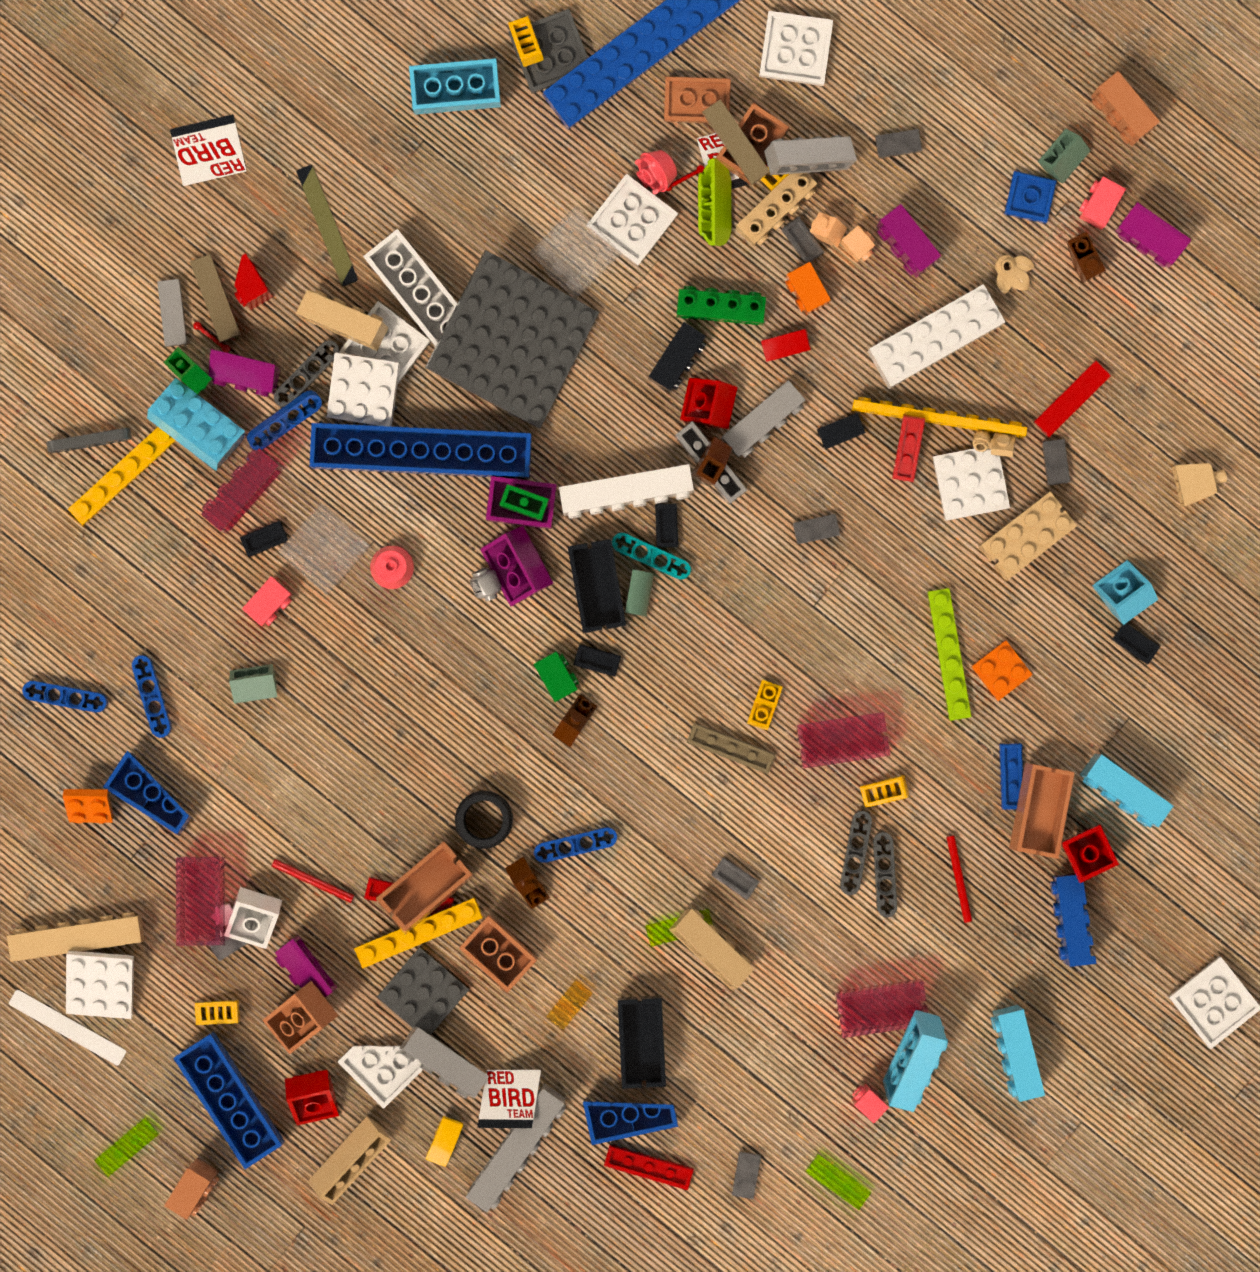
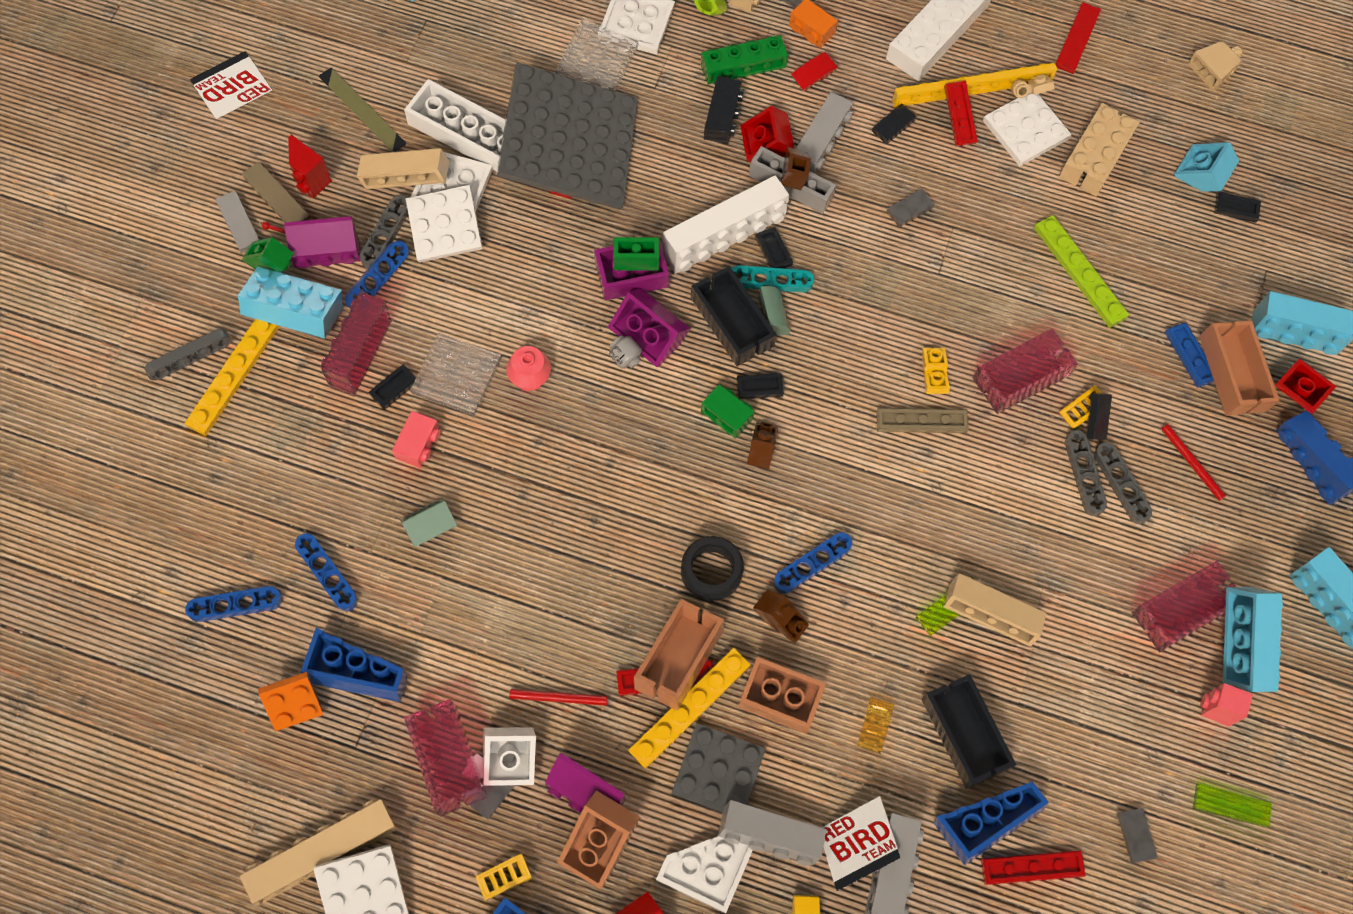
camera: 25 degrees left, 20 degrees down
(420, 450) = (513, 256): blue brick -> none
(735, 878) = (983, 539): flat silver tile -> none
(889, 809) = (1099, 416): none -> black tile
(1001, 670) = (1134, 268): orange plate -> none
(1056, 462) = (1090, 88): flat silver tile -> none

